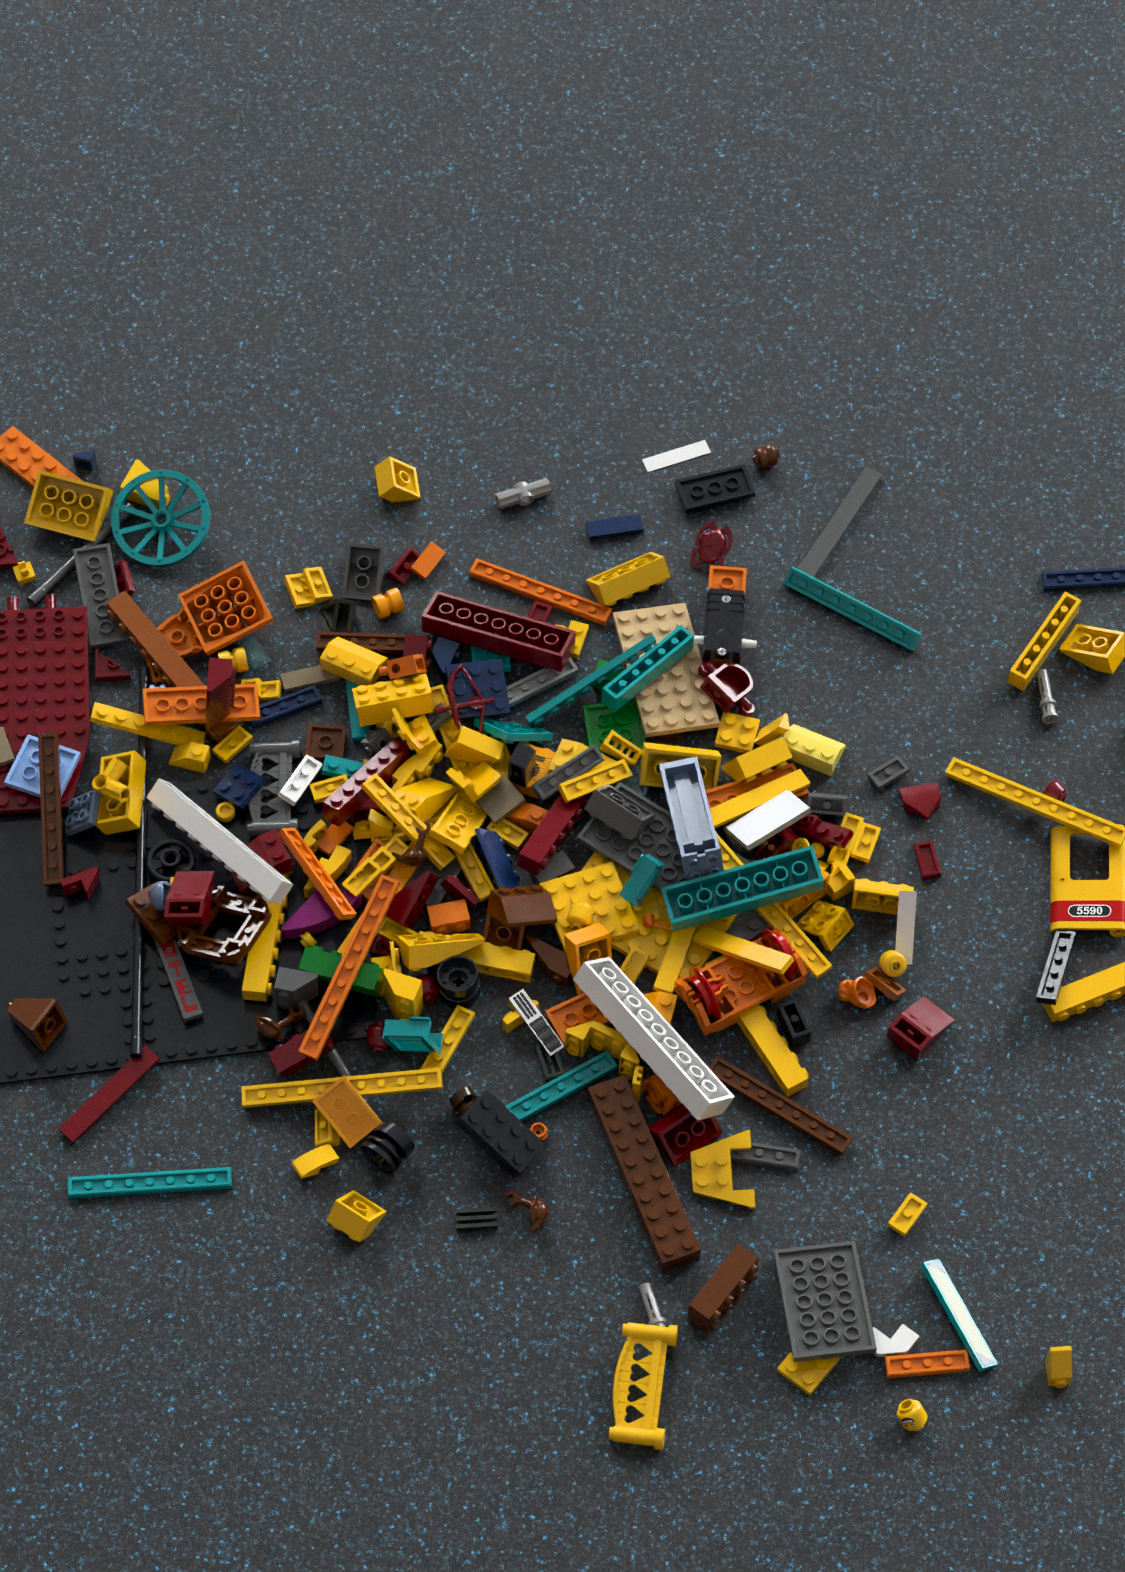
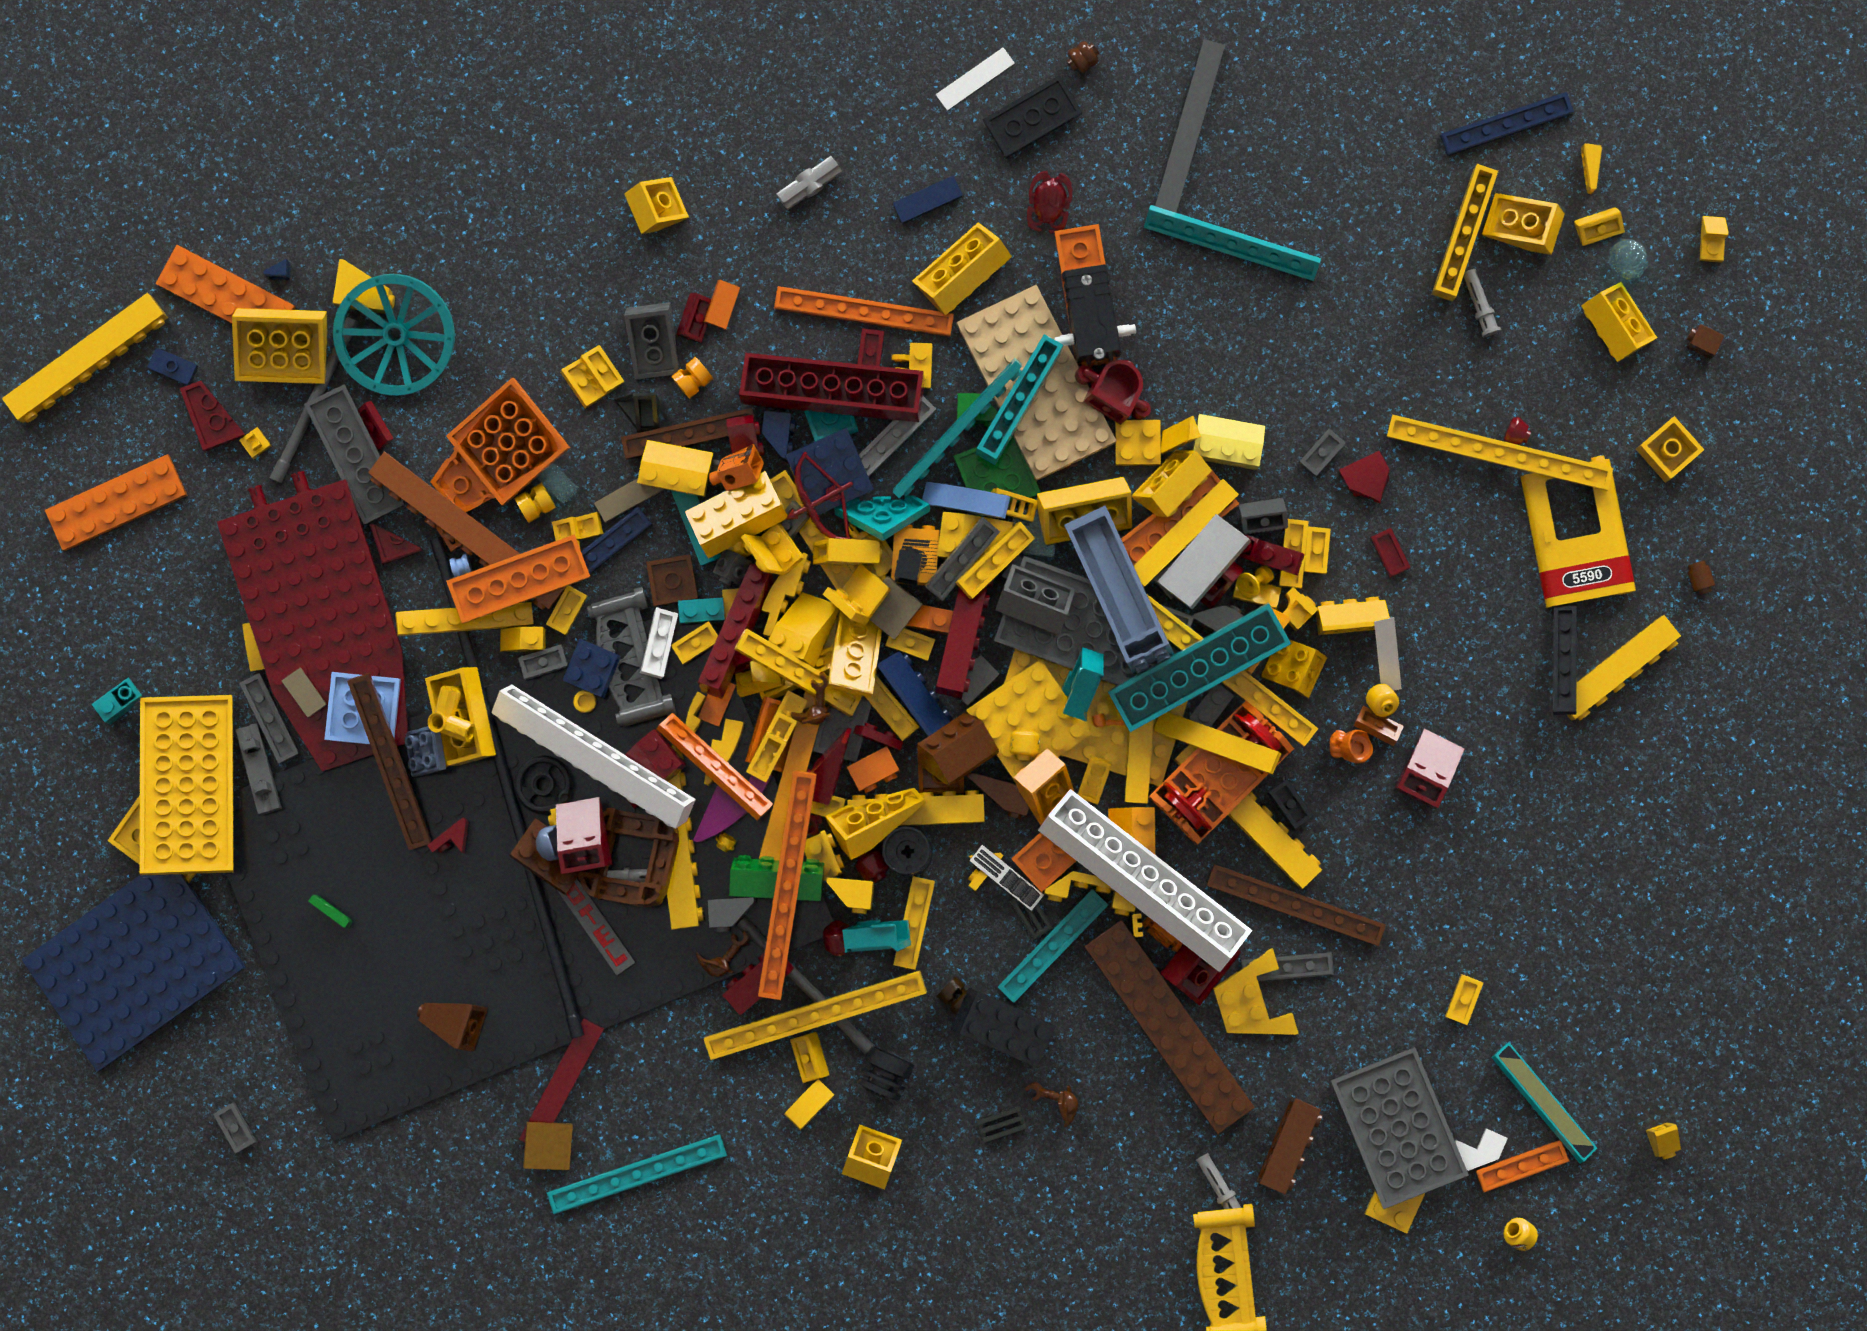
camera: 10 degrees left, 25 degrees up
(81, 1138) = (547, 1146): none -> pearl gold tile
(201, 774) = (543, 662): none -> dark grey plate
(219, 690) = (539, 574): dark red slope -> none
(347, 1111) = (829, 1044): light orange plate -> none
(541, 1128) = (1041, 1011): orange plate -> none
(585, 734) = (966, 500): none -> medium blue slope

